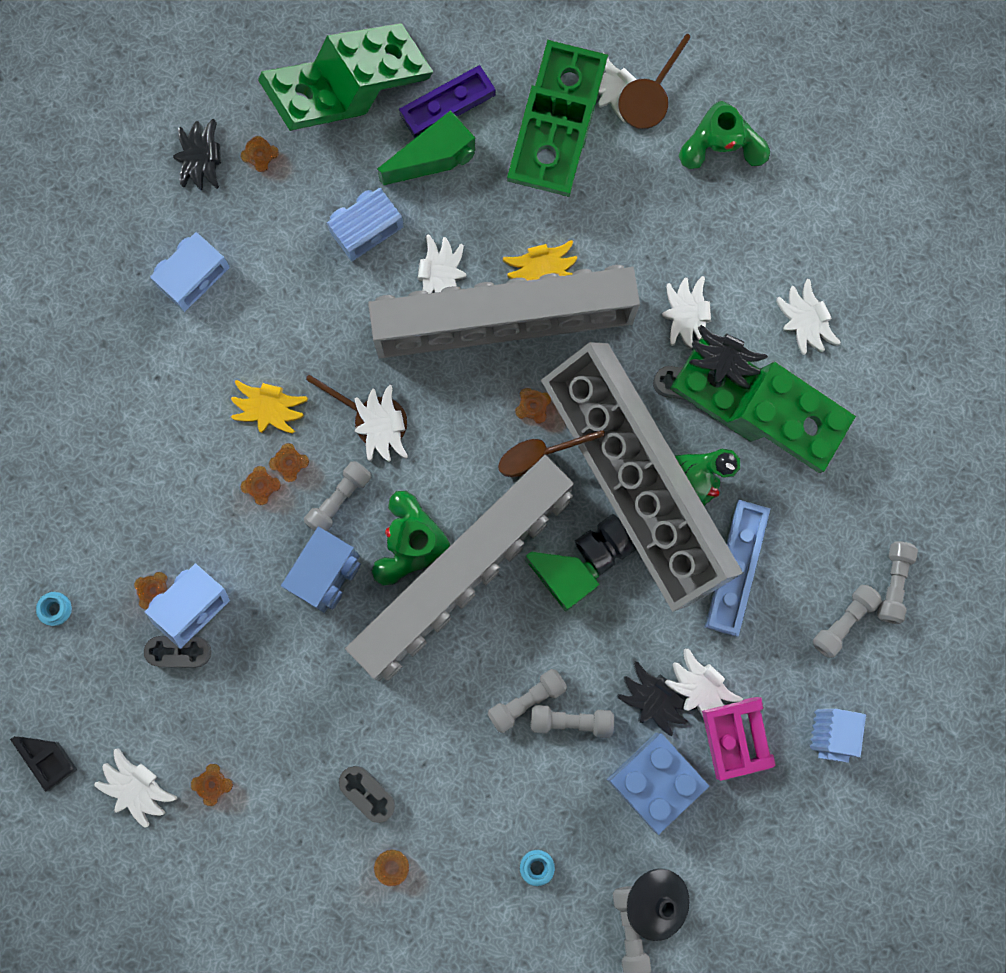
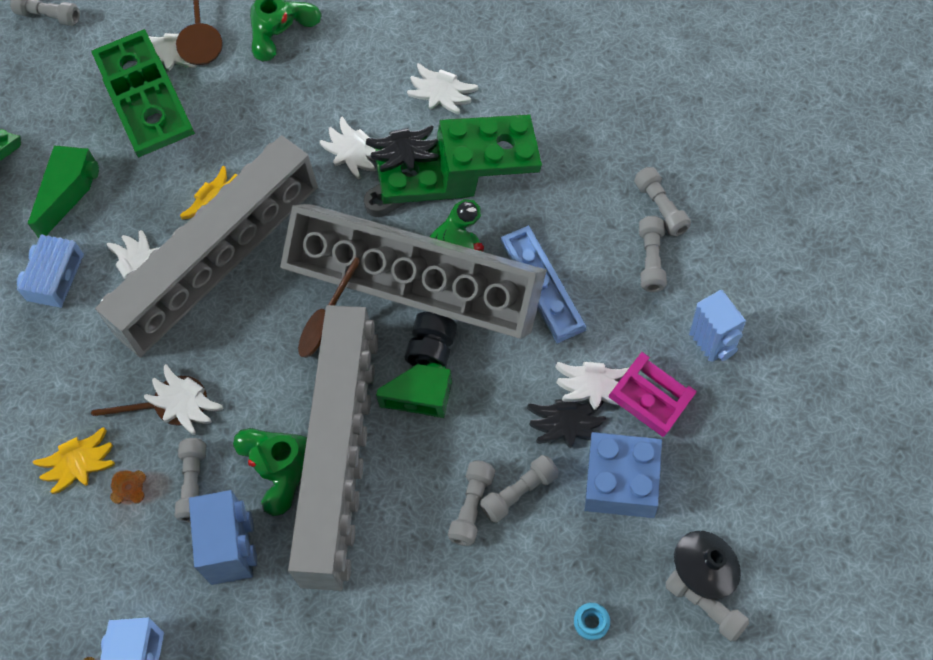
camera: 30 degrees left, 15 degrees down
(258, 476) = (111, 516): clear orange plate -> none
(456, 95) = (55, 130): dark purple plate -> none
(533, 396) = (286, 287): clear orange plate -> none

